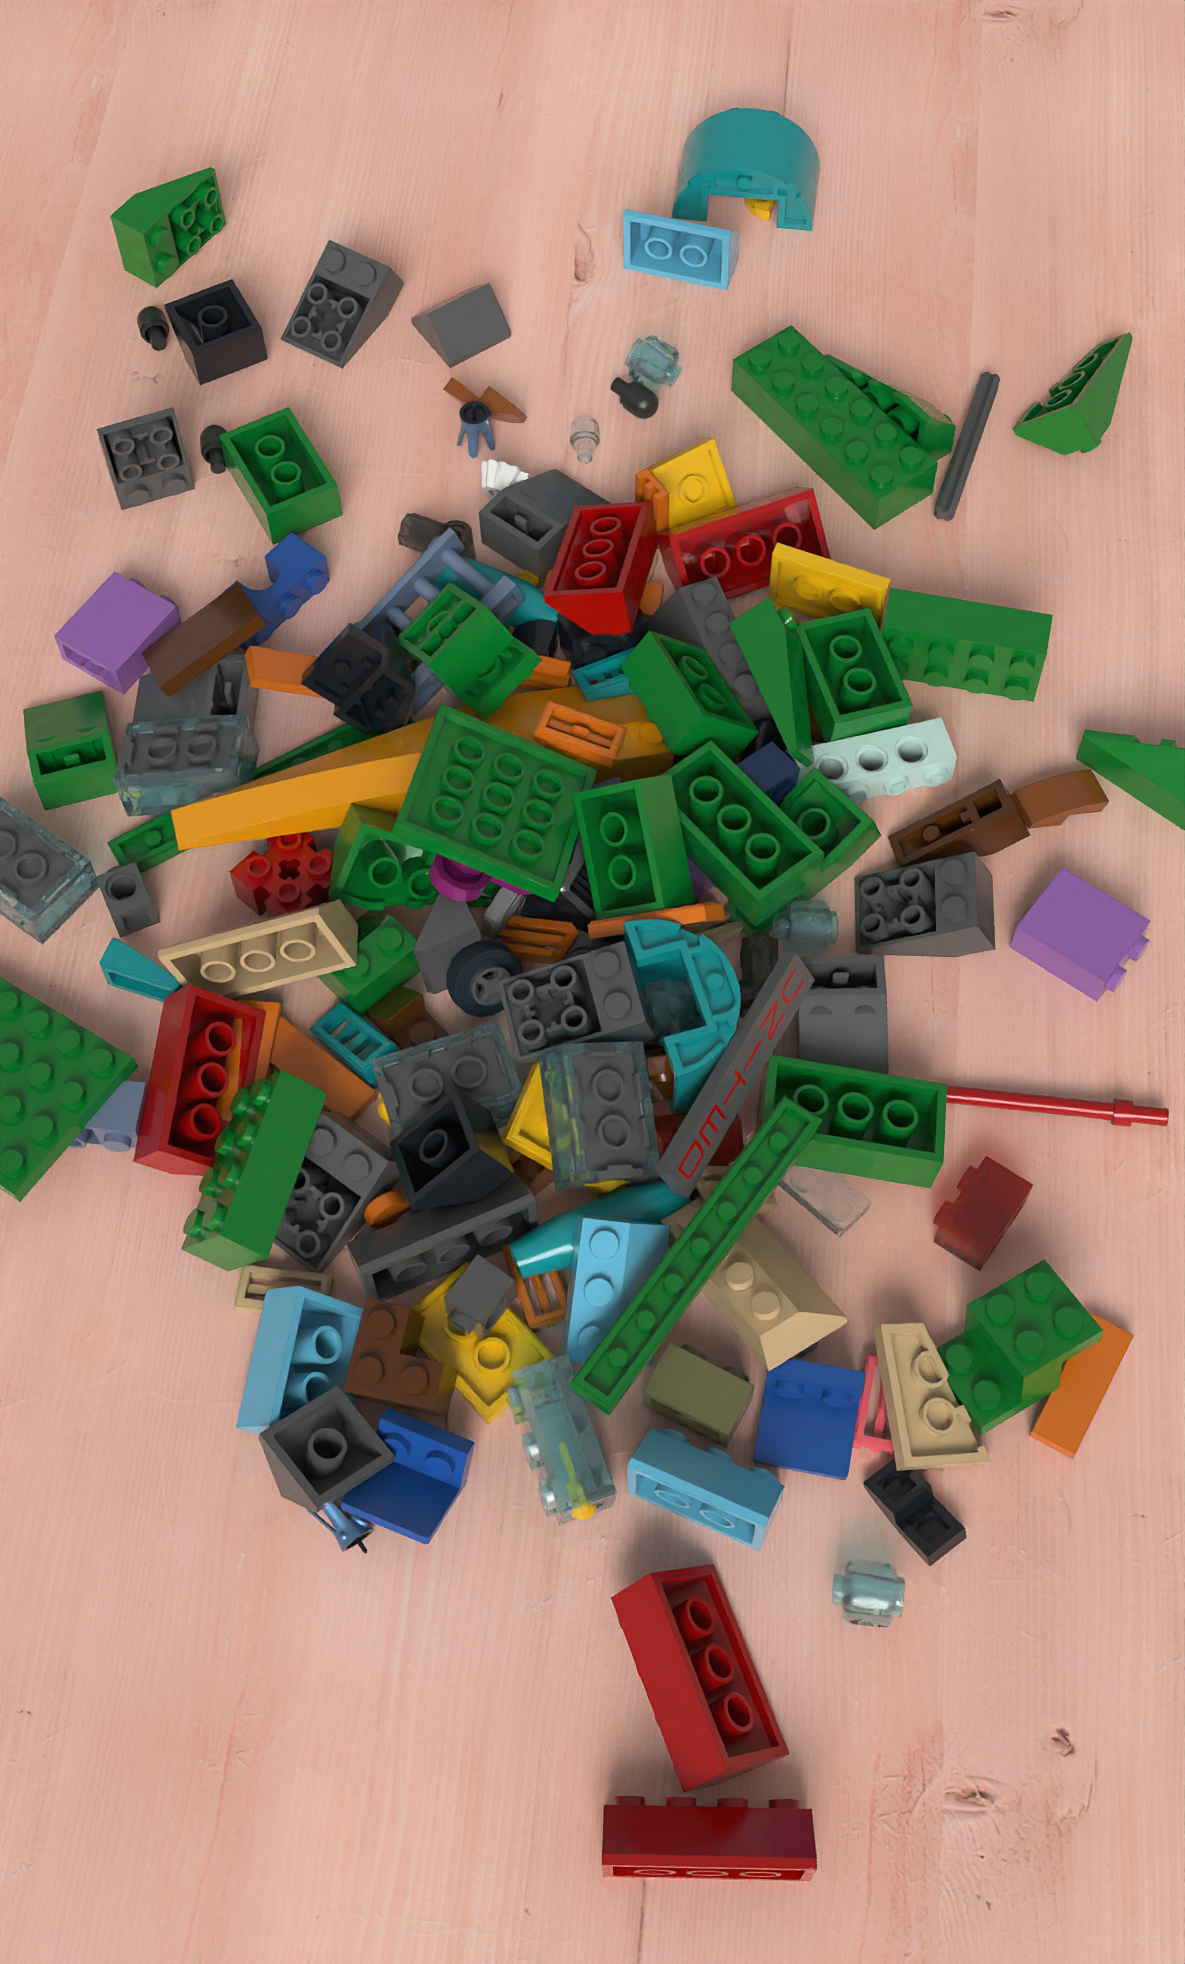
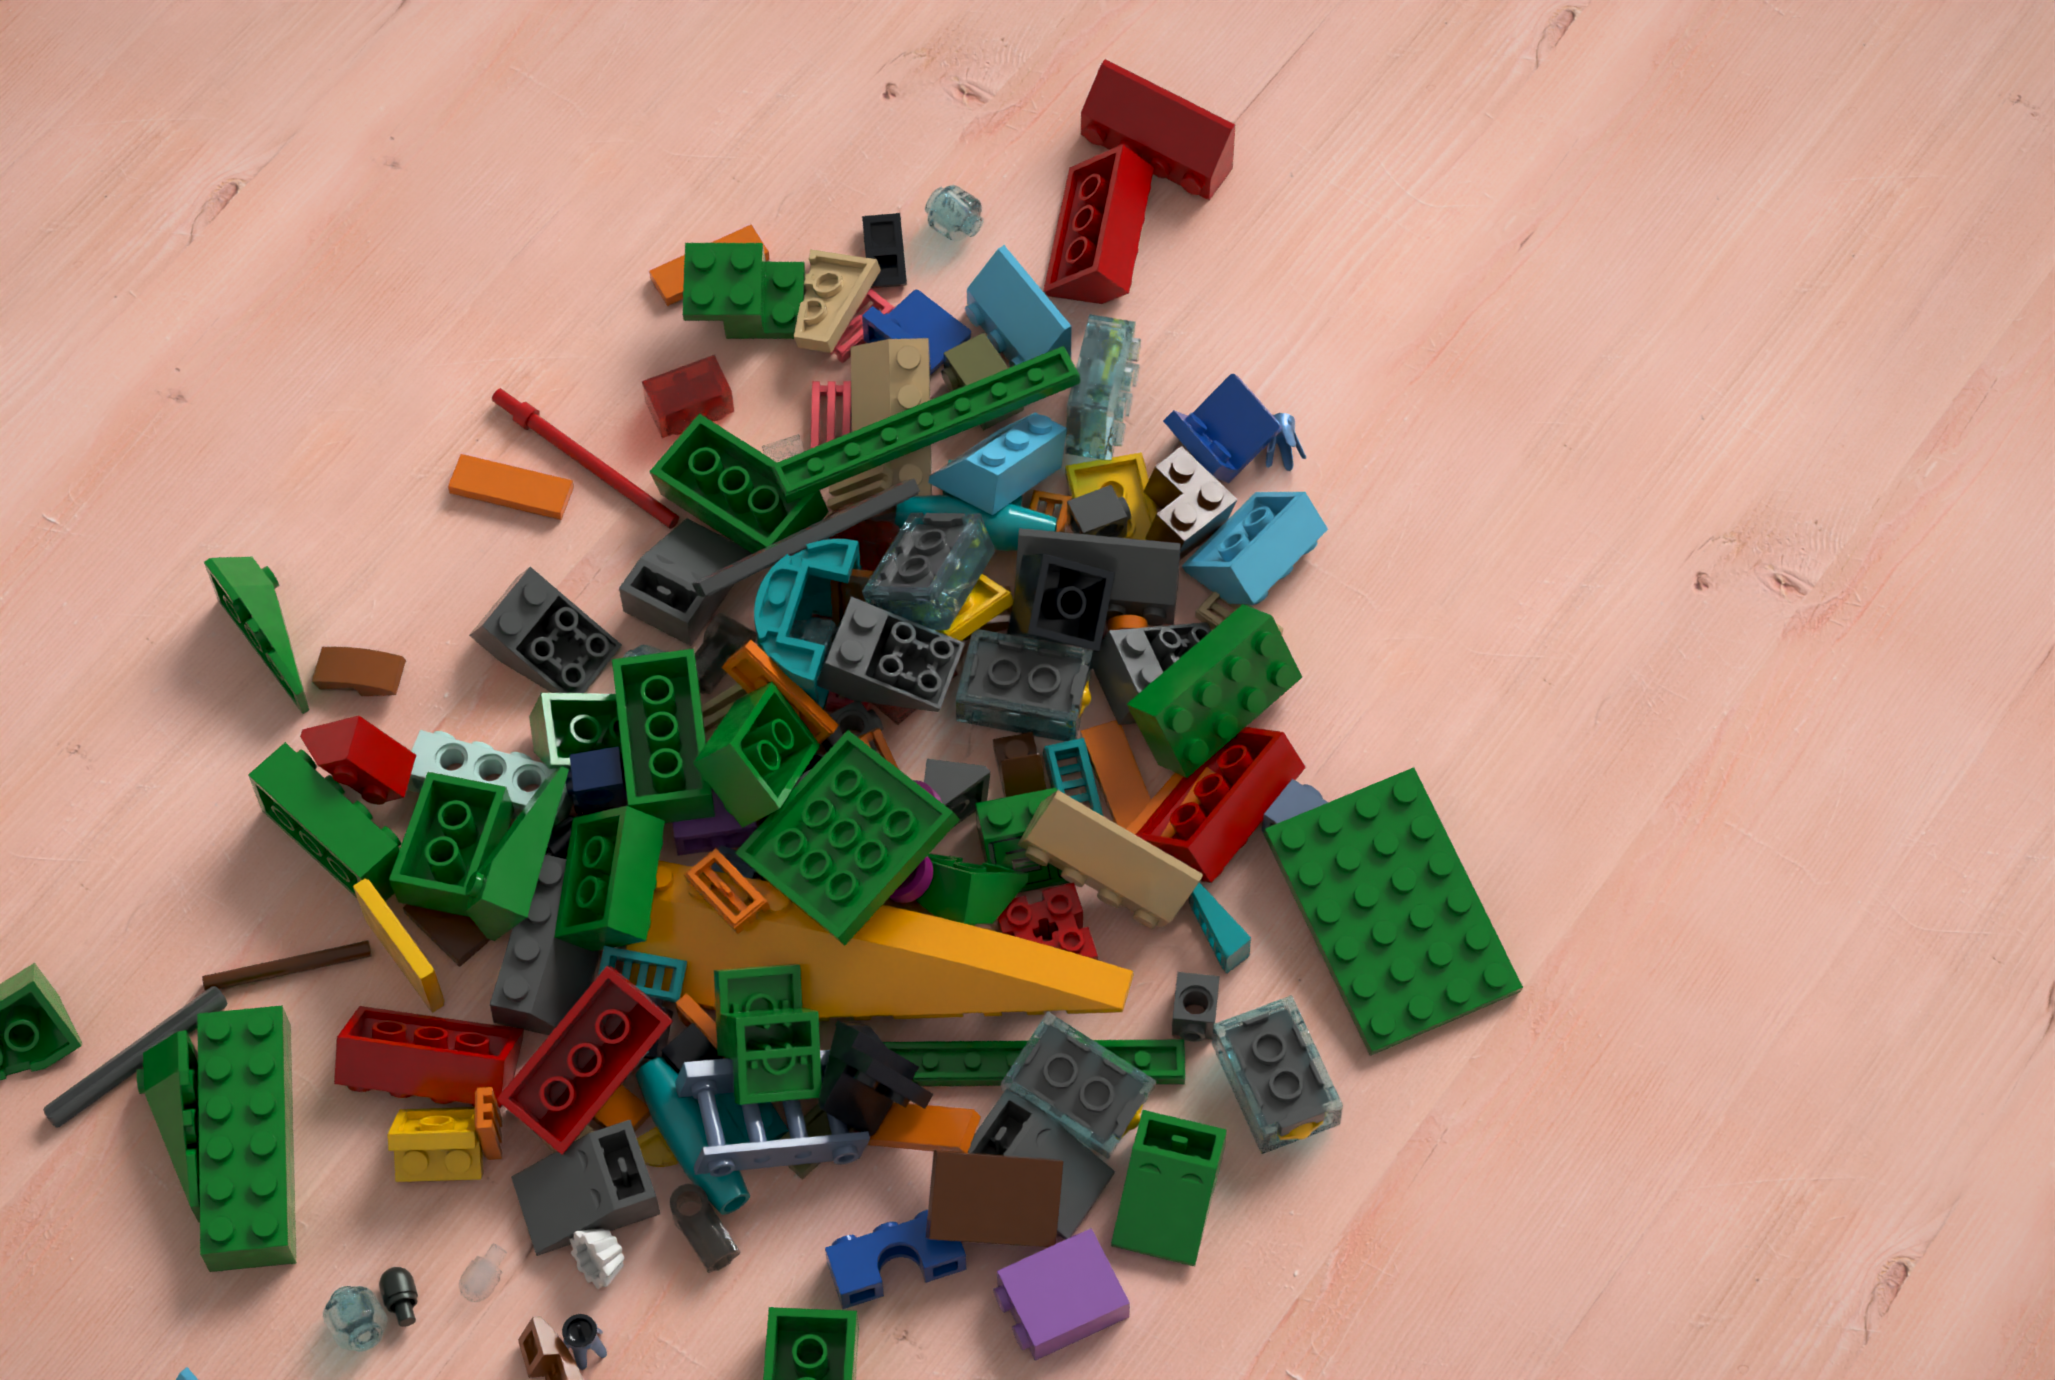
camera: 150 degrees left, 0 degrees up
(323, 1451) = (1272, 462): dark grey slope -> none
(466, 982) = (916, 756): black wheel -> none
(823, 1242) = (831, 391): none -> coral tile
(927, 547) = (287, 965): none -> reddish brown bar
(977, 823) = (465, 681): reddish brown slope -> none
(980, 688) = (361, 758): none -> red slope
(1076, 1037) = (511, 486): none -> orange tile
(1081, 935) = (443, 551): medium lavender brick -> none

